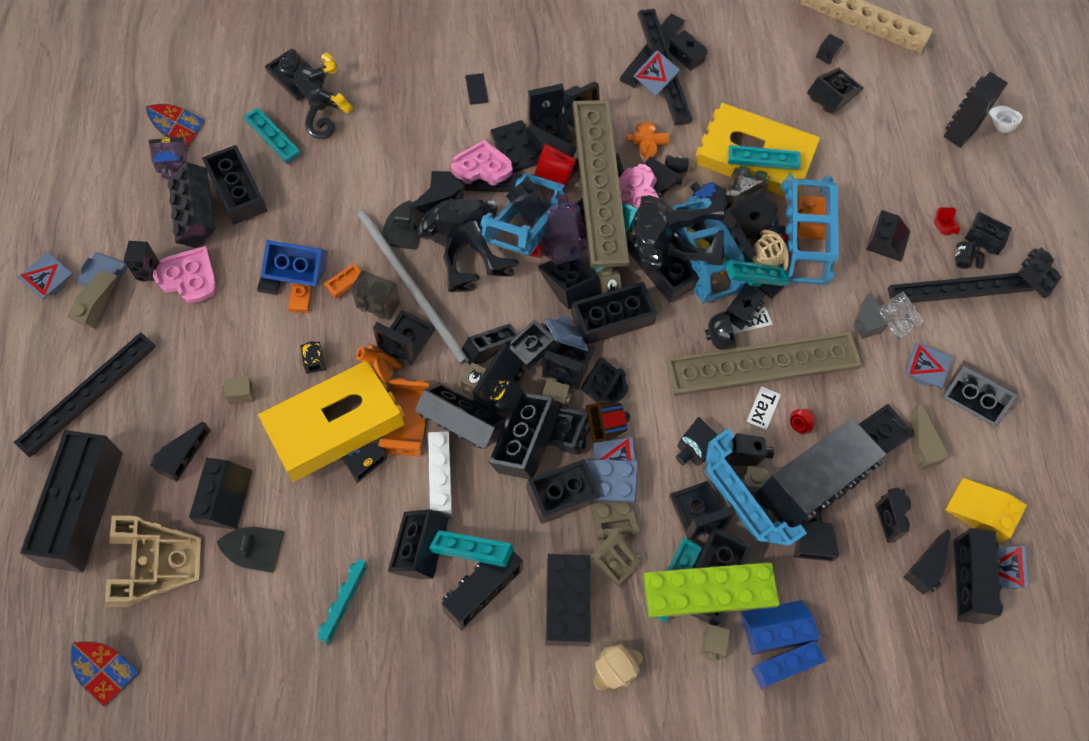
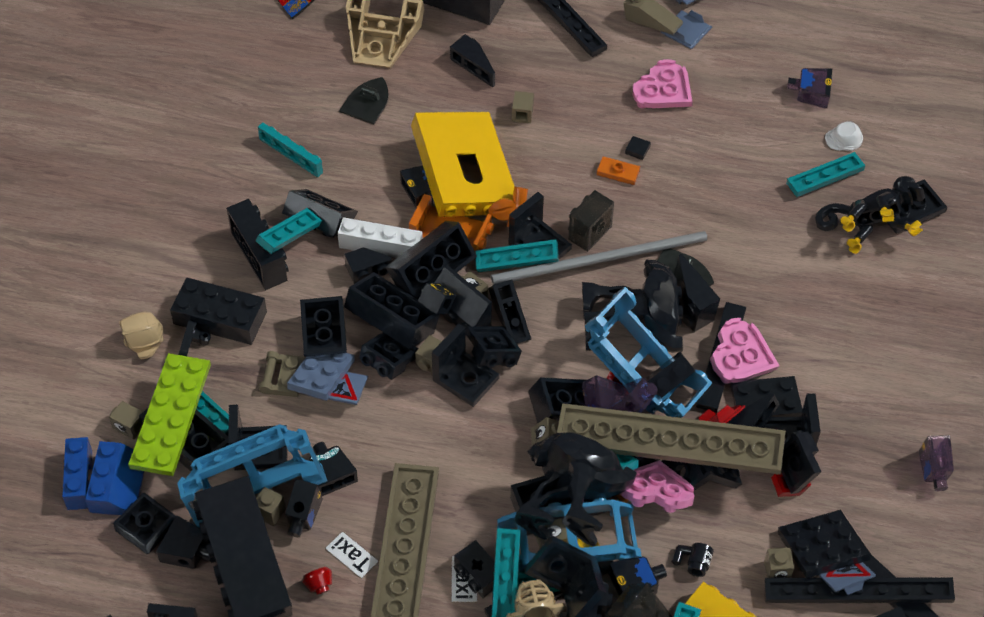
camera: 110 degrees right, 10 degrees down
(141, 260) = (682, 47): black brick -> none
(174, 121) = (856, 96): shield -> none
(191, 205) = (736, 90): black brick -> none
(220, 494) = (423, 81): black slope -> none
(223, 129) = (844, 137): none -> white hat
(234, 184) = (761, 130): black brick -> none
(293, 263) = (652, 165): blue slope -> none
(313, 357) = (541, 166): black brick -> none
(342, 281) = (623, 206): orange plate -> none
(430, 347) = (517, 255): none -> teal plate
(472, 481) = (364, 262): none -> black slope
(476, 88) = (864, 381): black sticker -> none
(541, 31) = (937, 461): none -> clear purple torso
(565, 333) = (494, 374): sand blue piece -> none
(605, 383) = (430, 404): black slope -> none
(606, 420) = (382, 386): dark brown torso -> none
(611, 561) = (236, 352): dark tan plate -> none
(611, 618) = (195, 335): none -> black piece
(614, 313) = (507, 429): black brick -> none
(635, 90) = (824, 543): none -> black plate
(647, 140) = (745, 539): orange plant -> none
(662, 114) = (779, 563): none -> dark tan brick
(665, 177) = (680, 527): black torso -> none
(721, 331) = (450, 532): black cylinder -> none
(823, 575) = (146, 511): none -> black brick

